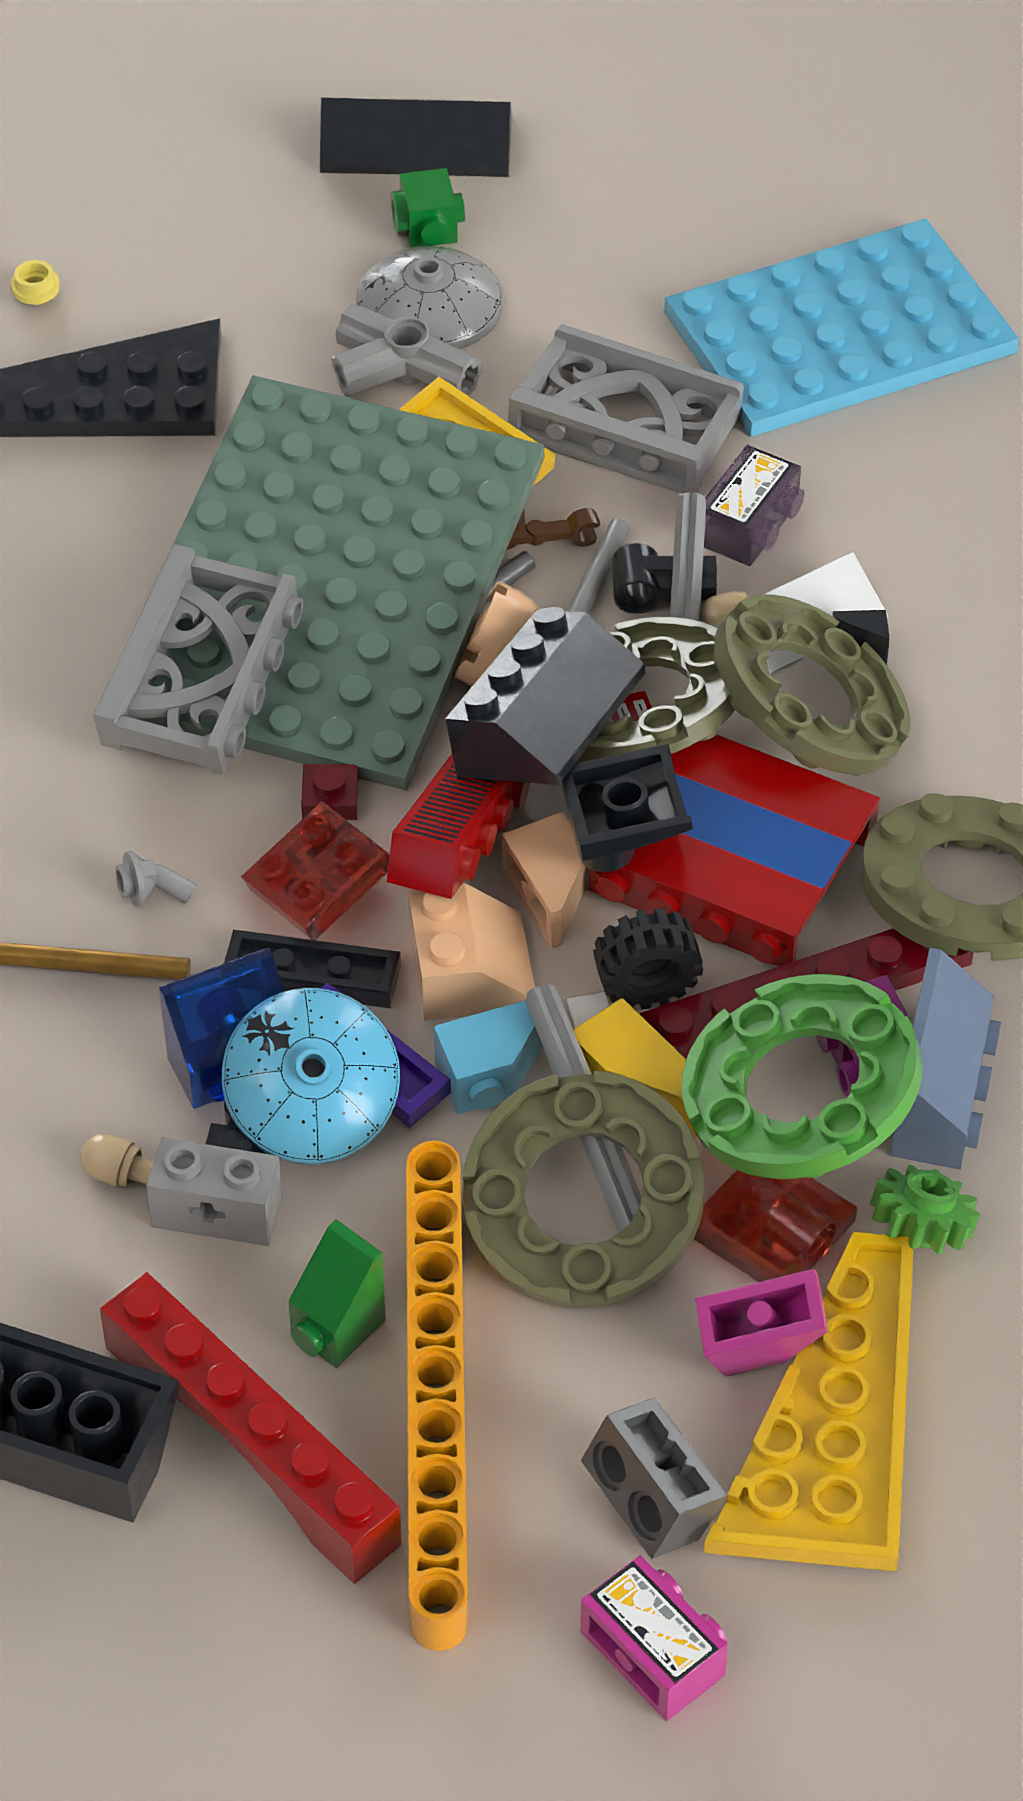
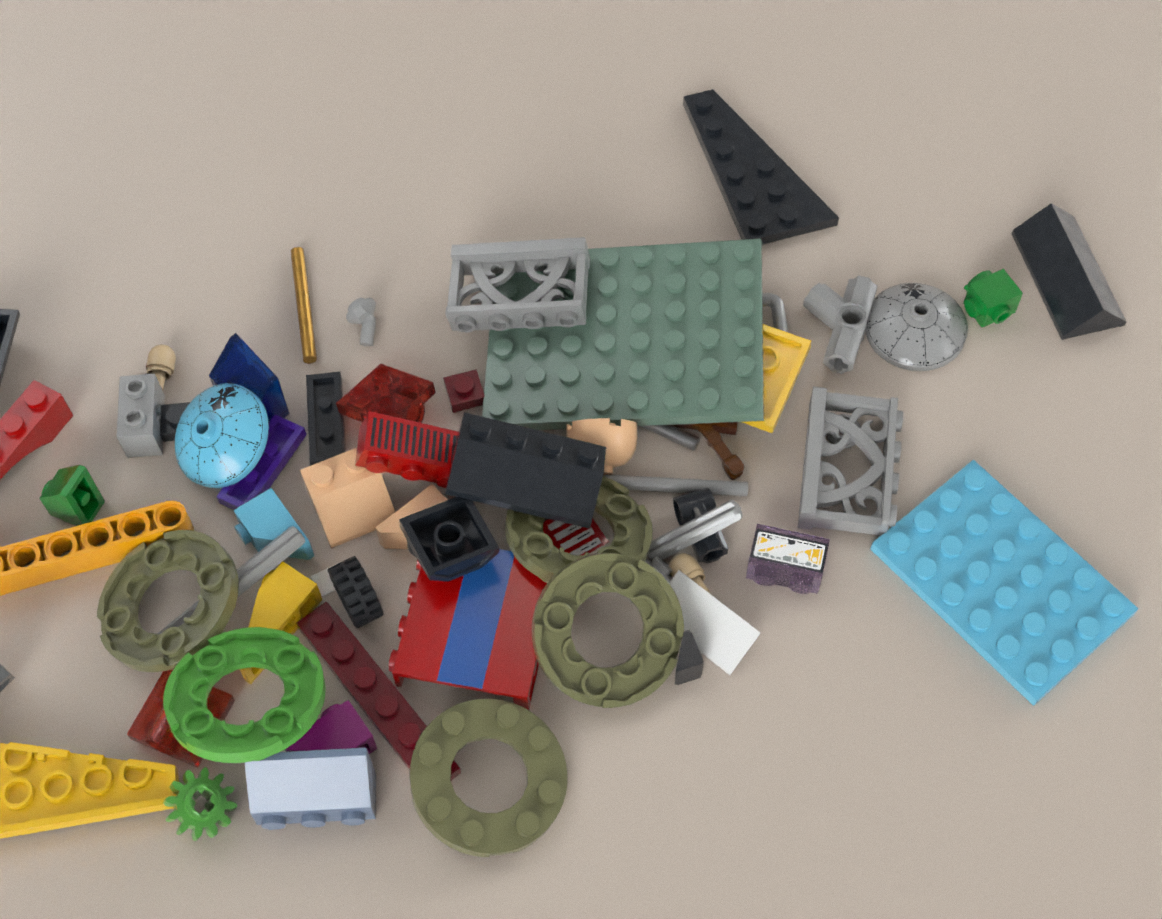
camera: 75 degrees right, 10 degrees up
(34, 282) = (829, 117): light yellow plate -> none
(761, 1322) = (78, 717): dark pink slope -> none

